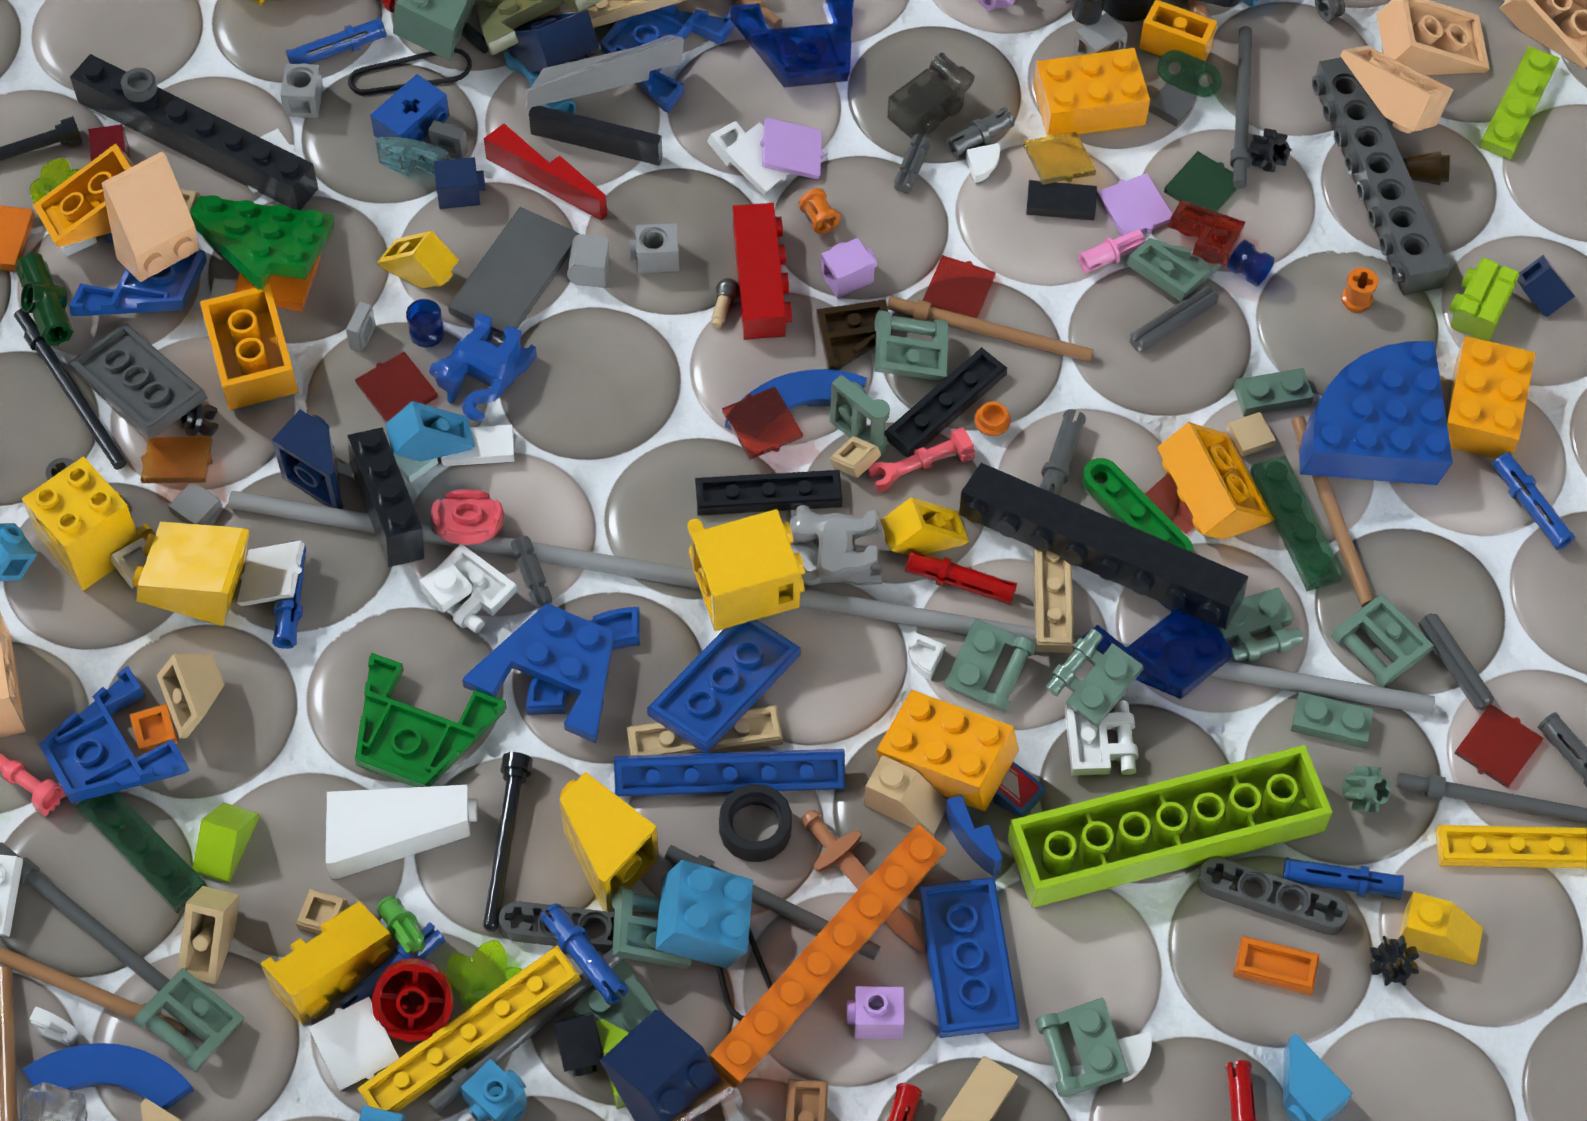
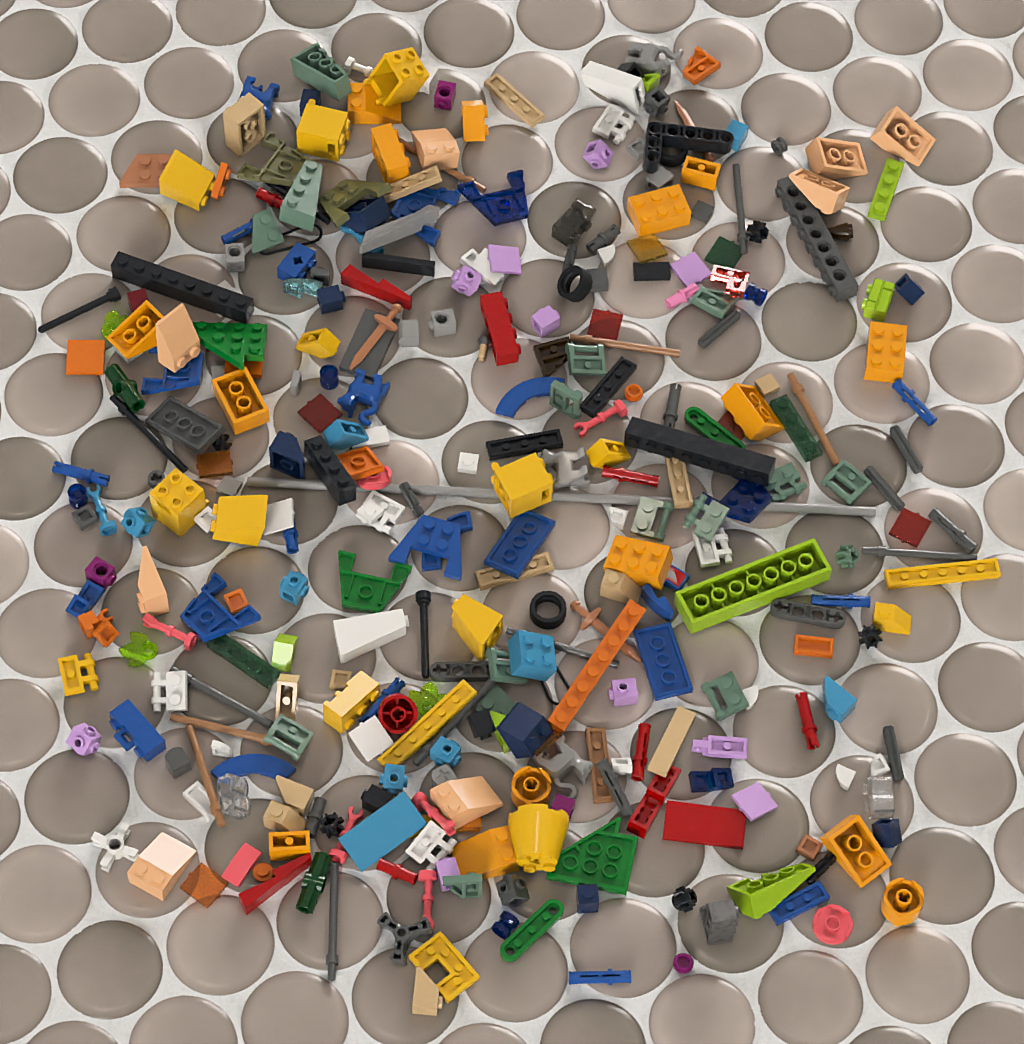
camera: 10 degrees left, 0 degrees up
(139, 84) = (151, 265): dark grey tile -> none
(190, 688) = (252, 579): tan slope -> none
(268, 715) = (294, 587): none -> dark azure brick
(364, 52) = (265, 232): none -> sand green wing
(401, 924) = (383, 679): bright green axle -> none
(445, 490) = (360, 463): none -> orange tile
(547, 238) = (384, 324): none -> nougat sword
(574, 941) = (476, 681): blue pin -> none
(655, 514) = (468, 463): none -> white plate
(712, 176) = (466, 280): none -> lavender brick
(728, 771) = (531, 586): blue tile -> none
(762, 423) = (515, 409): clear red piece -> none
(819, 211) = (525, 292): orange bush -> none
(855, 456) = (566, 421): tan tile -> none
(926, 212) = (566, 279): none -> black tyre
(956, 204) = (599, 279): none -> dark grey piece
(1191, 71) = (709, 195): clear green plate -> none
(1273, 391) = (776, 361): sand green plate -> none
(1332, 720) = (826, 525): sand green plate -> none
(1361, 286) = (814, 301): orange bush -> none
(1381, 419) = (833, 369): blue brick -> none
(1507, 590) = (906, 449): none -> dark grey axle

